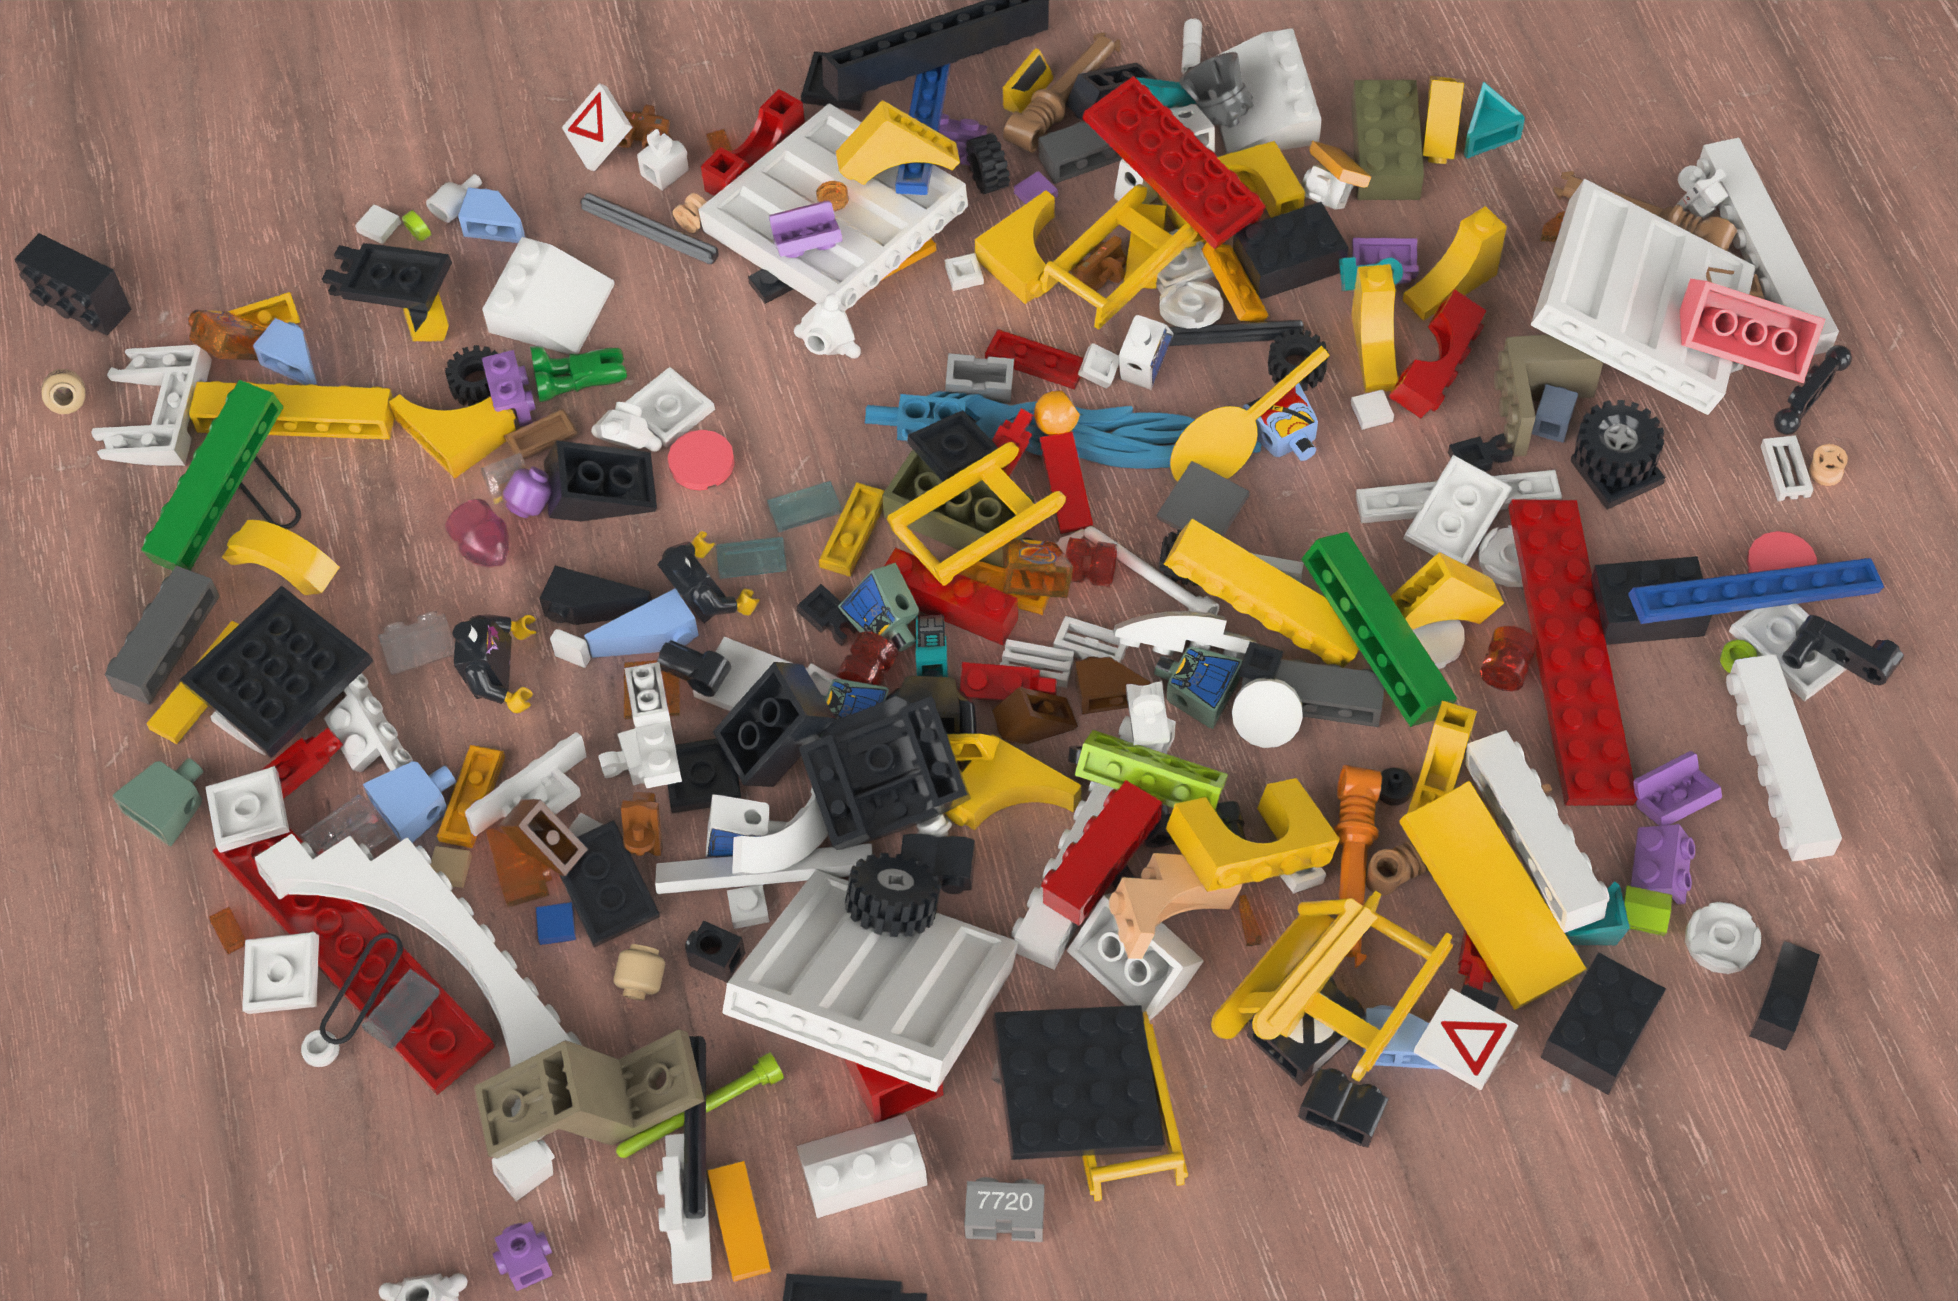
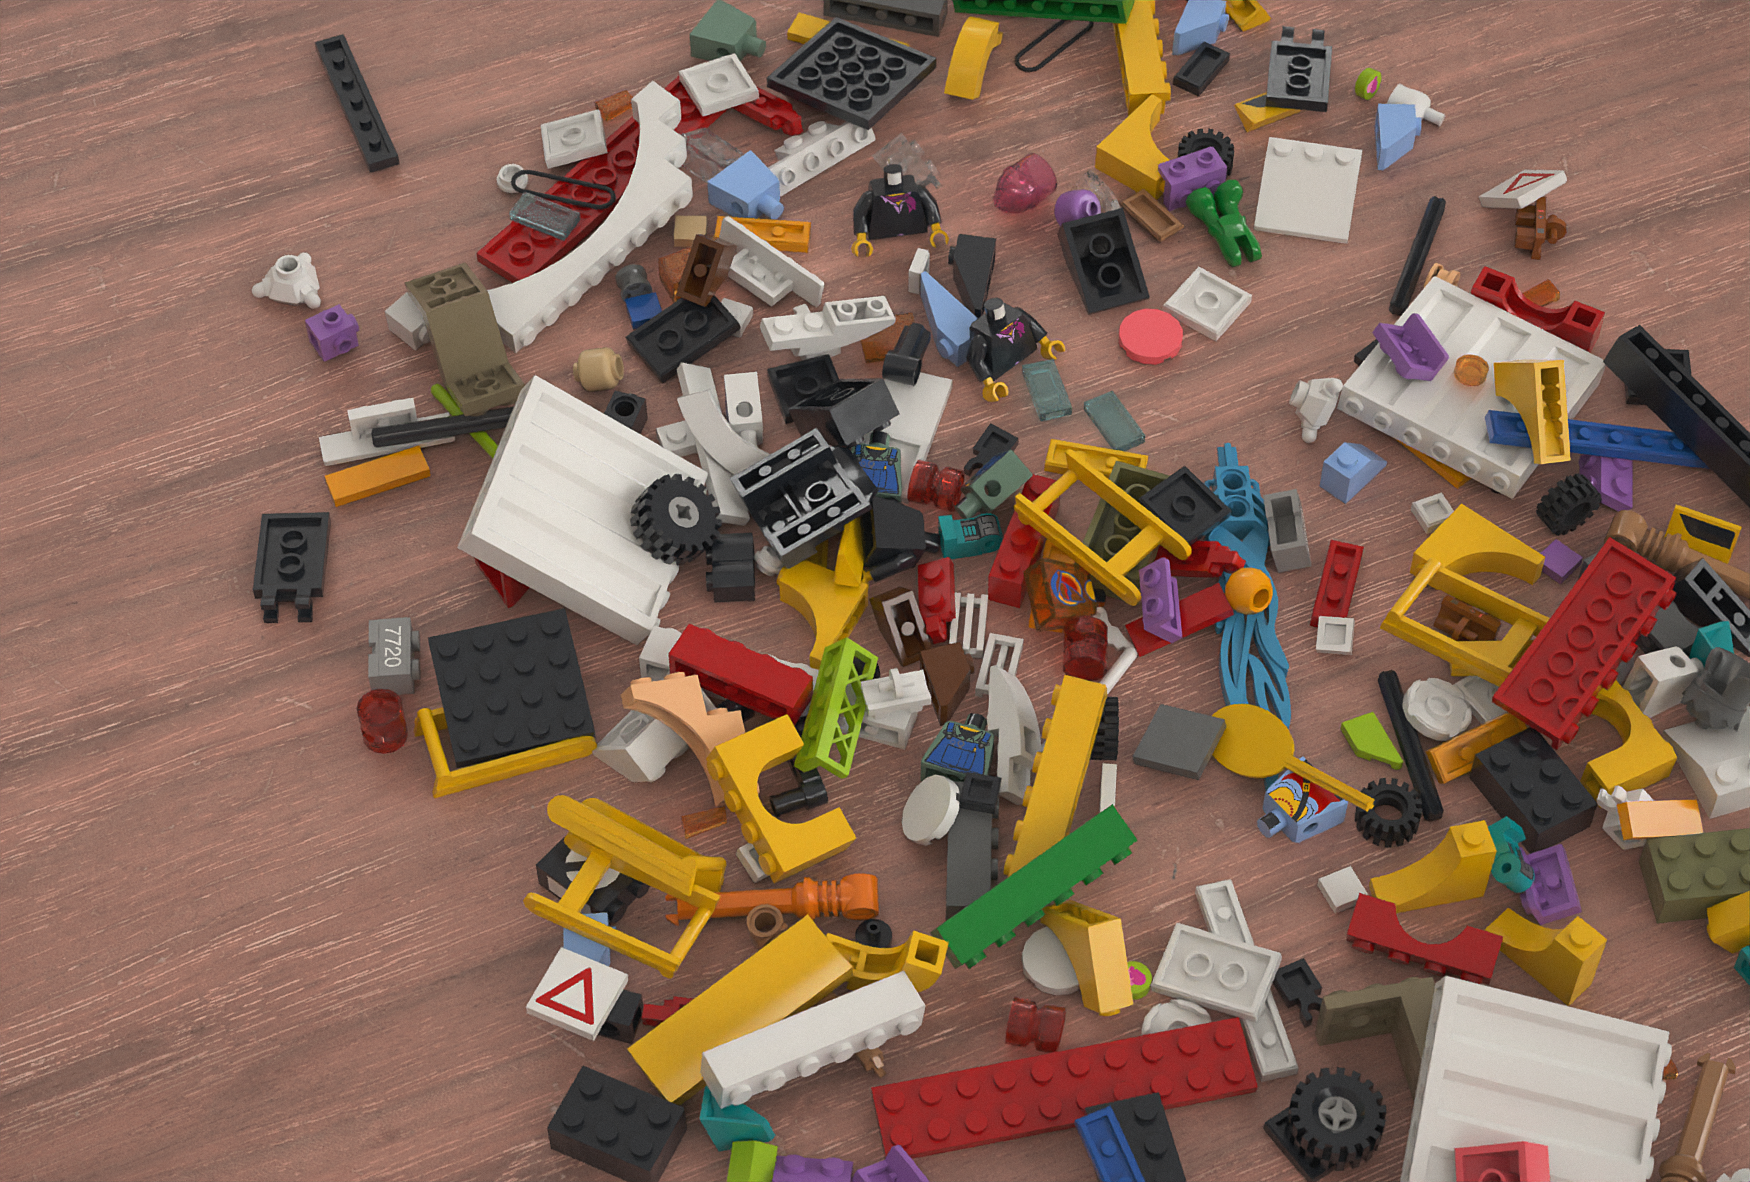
camera: 80 degrees right, 5 degrees down
(142, 1219) = (357, 103): none -> black plate
(346, 363) = (1201, 69): none -> black tile
(378, 224) = (1365, 57): white tile -> none
(517, 927) = (632, 281): none -> dark grey wheel
(626, 428) = (1163, 267): white rock -> none
(642, 824) = (736, 344): dark orange hips -> none
(662, 160) = (1501, 247): white brick -> none
(862, 1165) = (427, 545): white slope -> none
(908, 322) = (1349, 470): none -> light blue slope
(1072, 479) = (1160, 601): none -> medium lavender bracket
(1094, 1212) = (382, 721): none -> clear red wheel
(1145, 347) = (1356, 662): white torso -> none
(1214, 362) = (1370, 740): none -> lime tile
(1343, 1107) = (504, 917): black brick -> none
(1554, 413) = (1375, 1060): sand blue brick -> none

